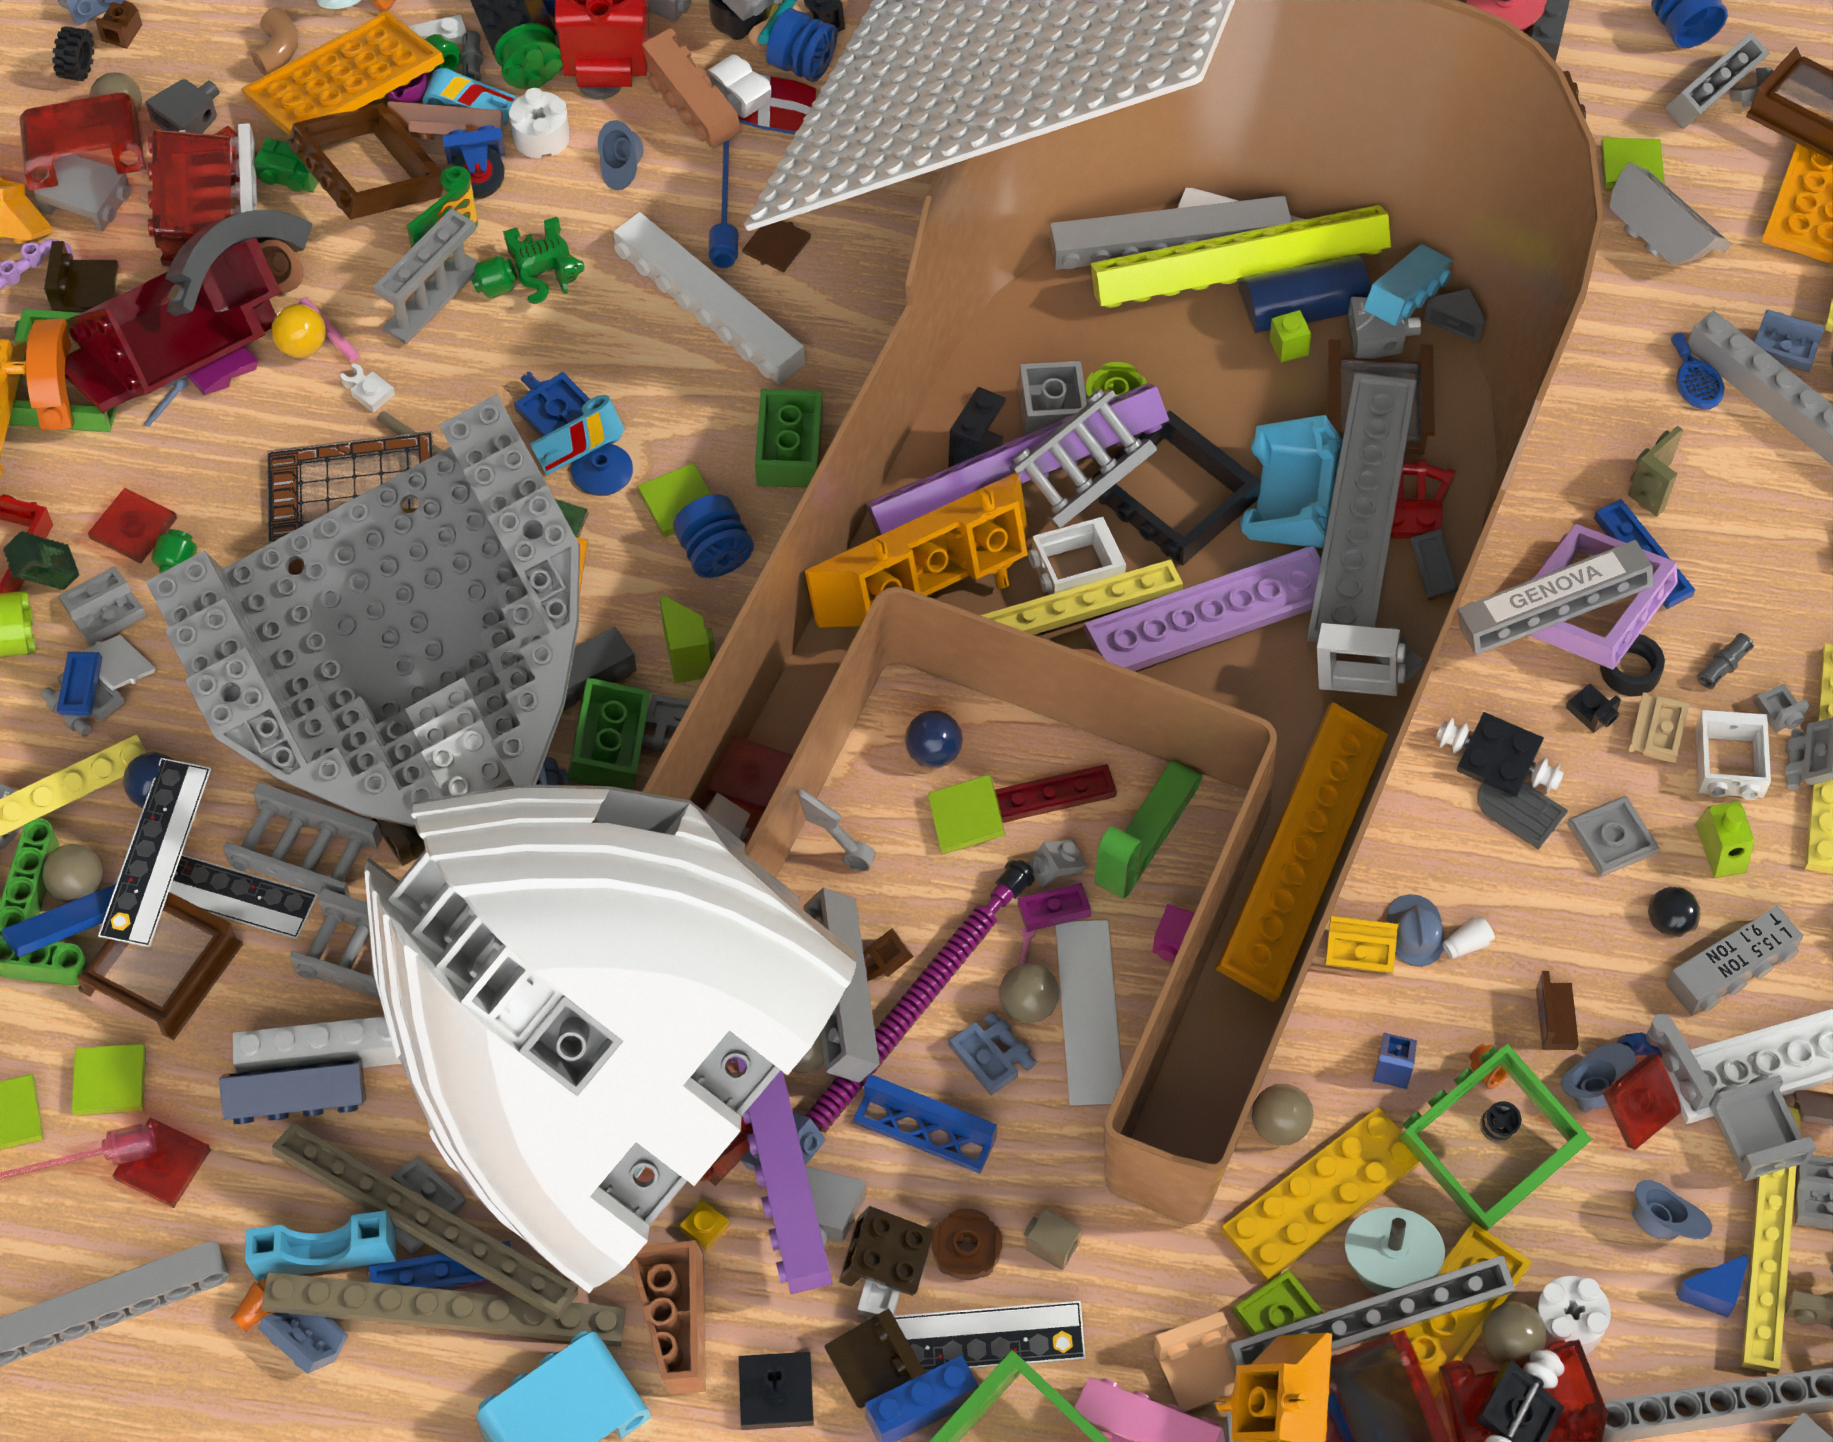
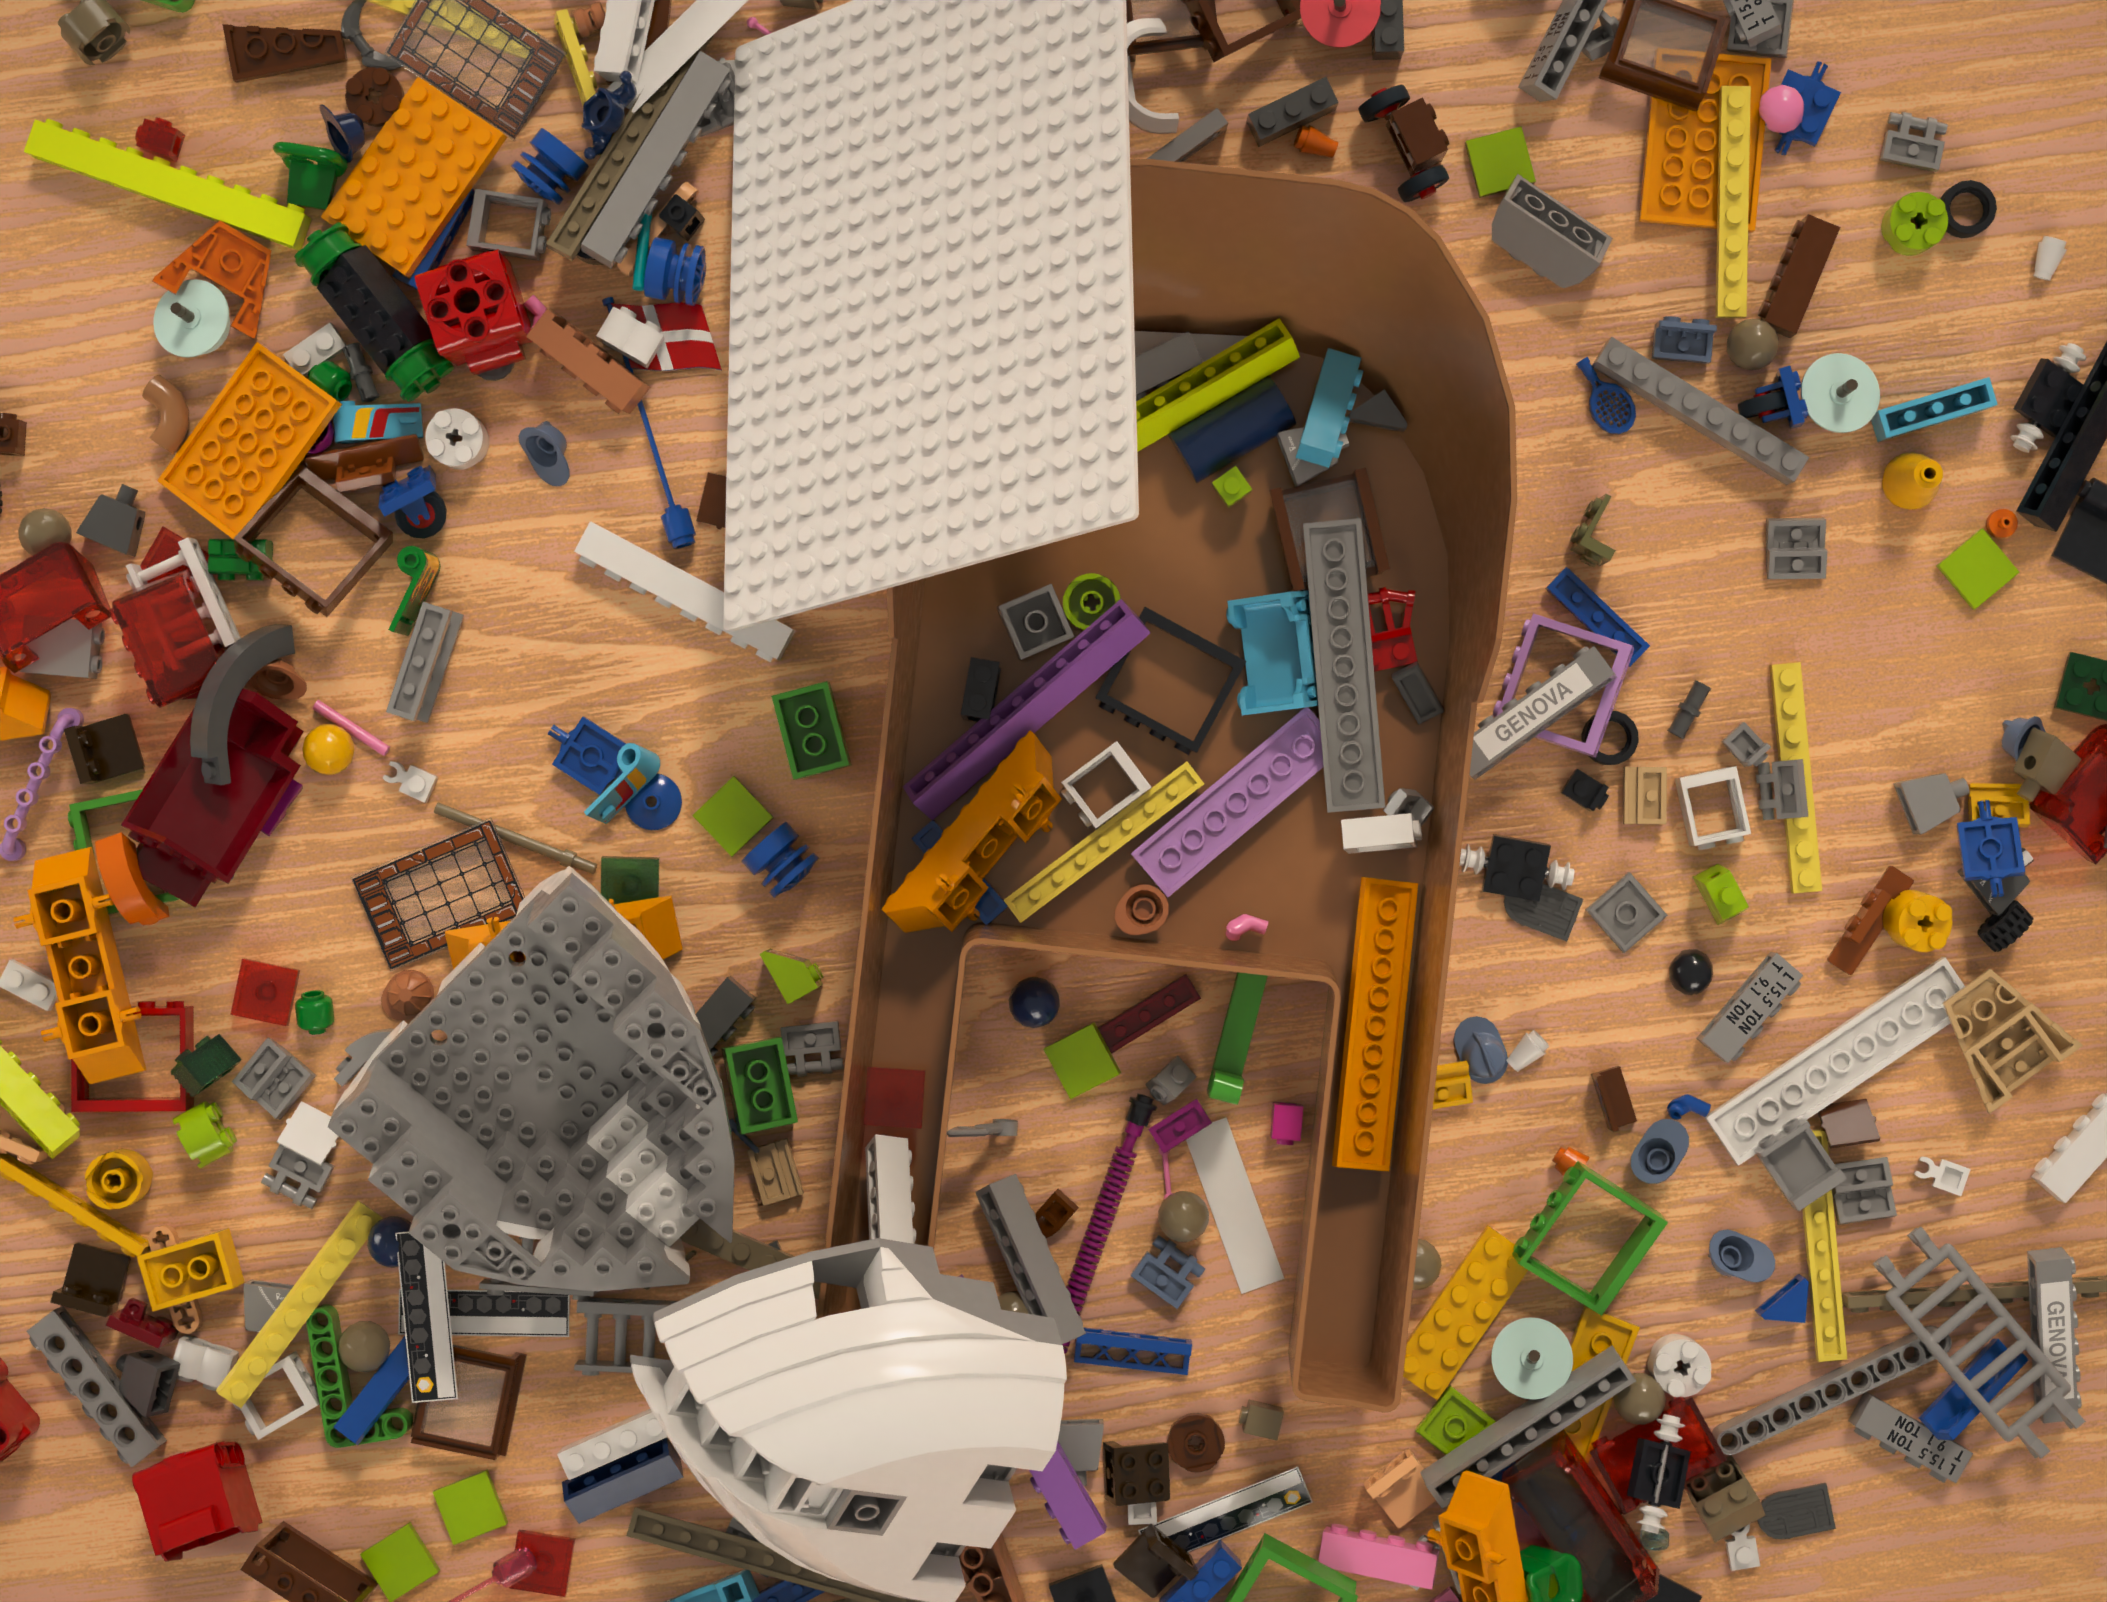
camera: 15 degrees left, 30 degrees up
(79, 683) = (292, 1171): blue tile -> none
(494, 276) = (481, 628): green head -> none
(540, 256) = (514, 593): green animal -> none
(1111, 469) = (1104, 716): light grey fence -> none
(1395, 1060) = (1493, 1178): blue slope -> none
(1506, 1117) = (1598, 1244): black wheel -> none
(1643, 1101) = (1700, 1165): clear red plate -> none
(1680, 1061) = (1723, 1125): light grey plate -> none

